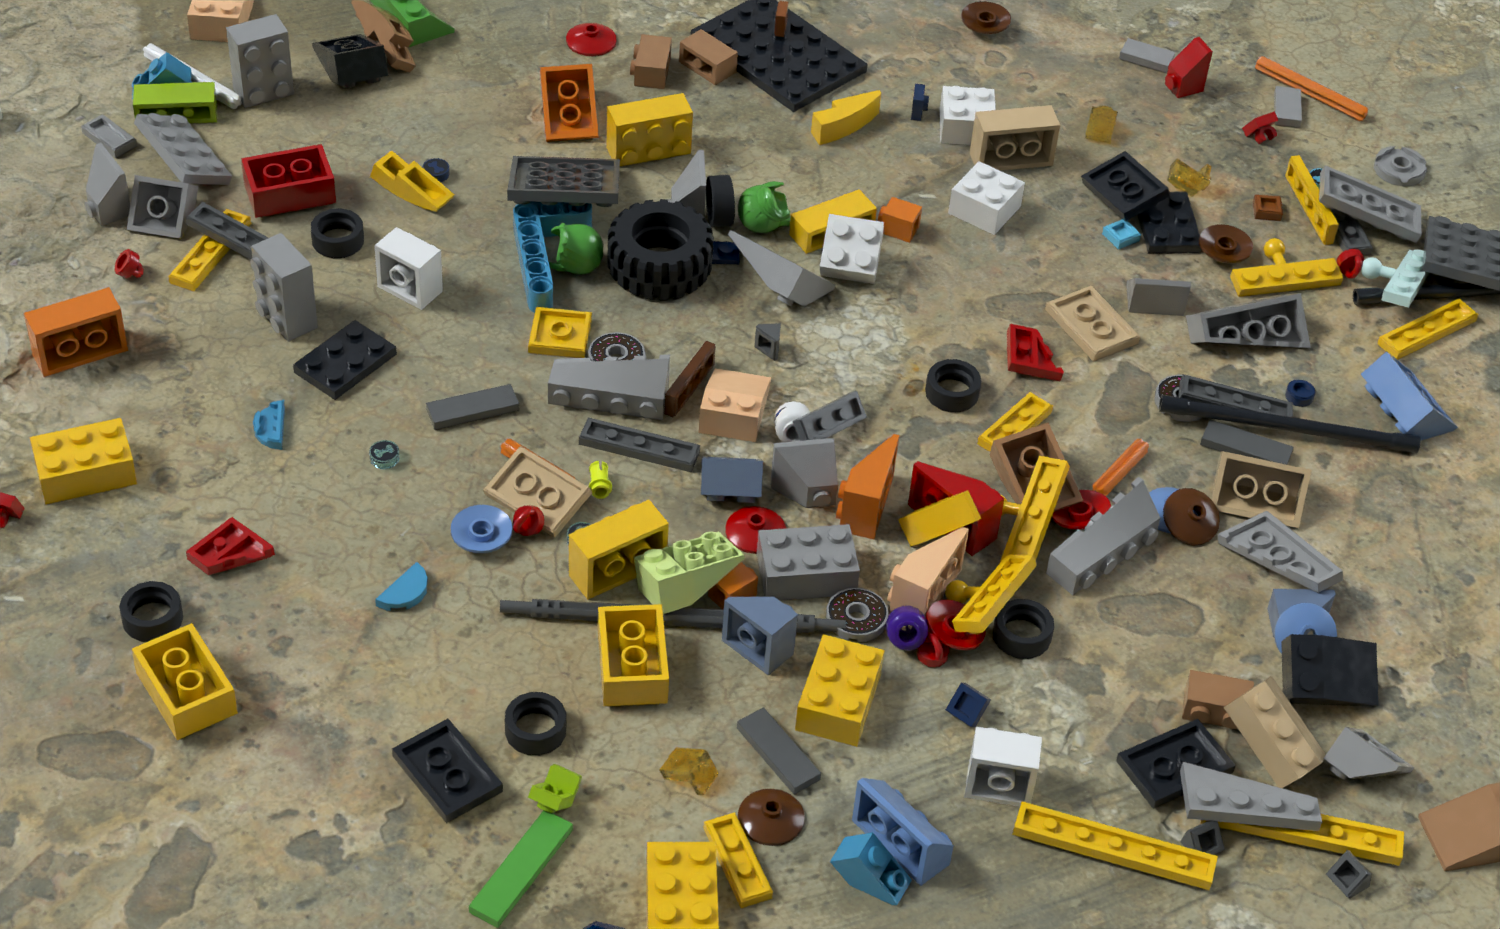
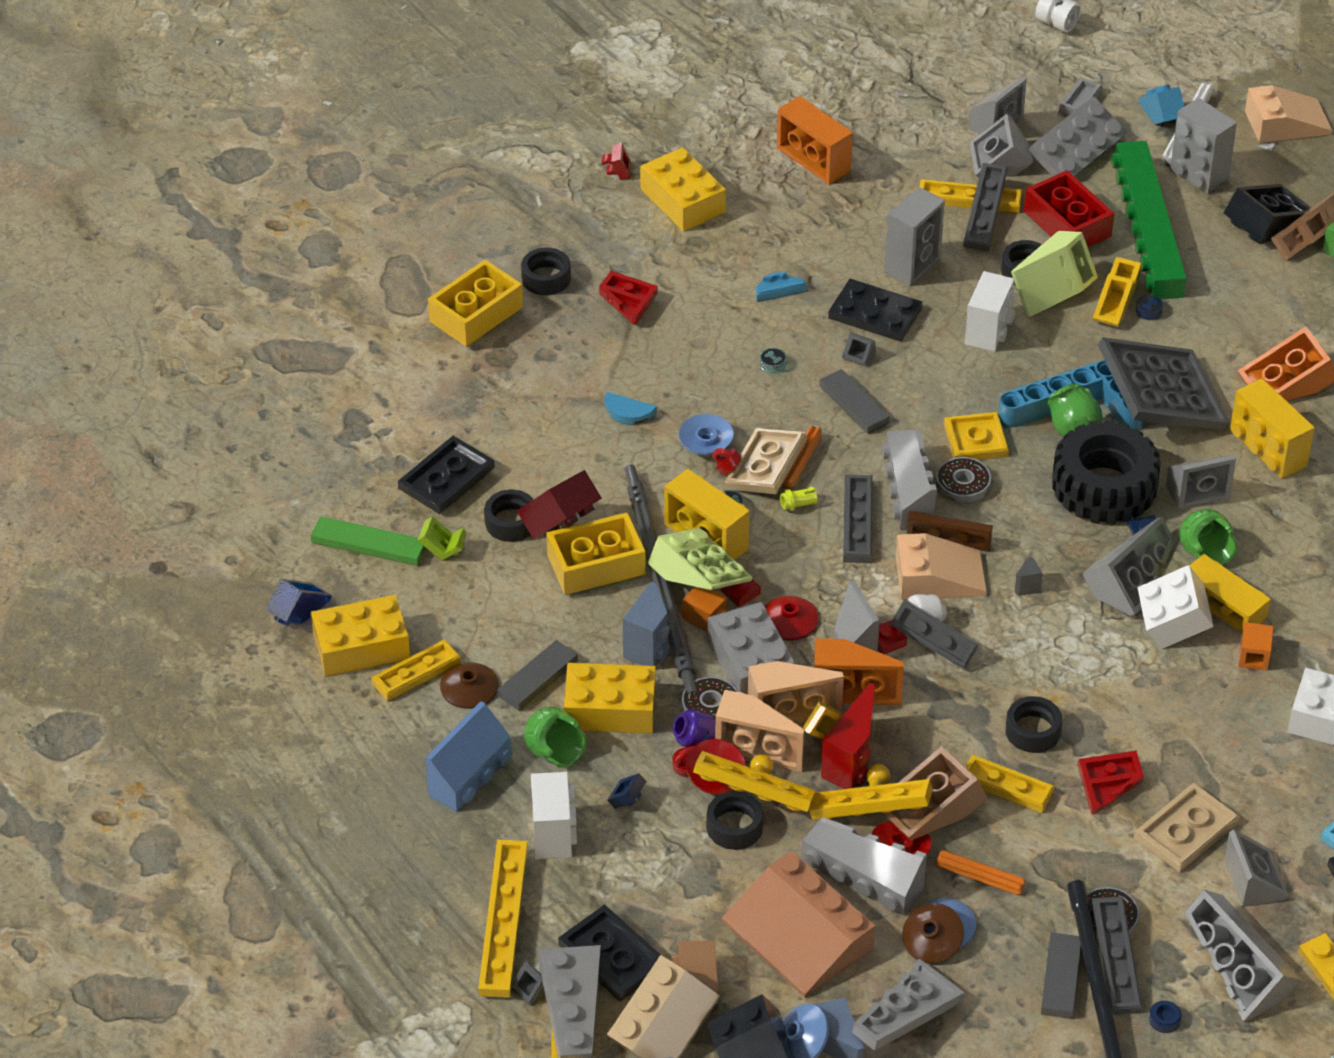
camera: 80 degrees right, 0 degrees up
(129, 265) = (921, 149): red tile -> none
(192, 100) = (1139, 118): lime brick -> none
(296, 129) = (1149, 220): none -> green brick
(371, 200) = (1054, 272): none -> yellowish green slope
(401, 383) = (859, 349): none -> dark grey slope
(565, 662) = (560, 505): none -> dark red brick
(690, 766) = (494, 620): clear yellow bracket -> none
(720, 200) = (1191, 489): black tyre -> none
(731, 478) = (828, 577): sand blue slope -> none
(871, 868) = (422, 740): dark azure slope -> none
(883, 542) = (795, 688): none -> light nougat slope
(883, 746) = (555, 736): none -> bright green hair
(1165, 608) = (800, 924): none -> nougat slope
(1255, 485) = (997, 985): tan slope -> none

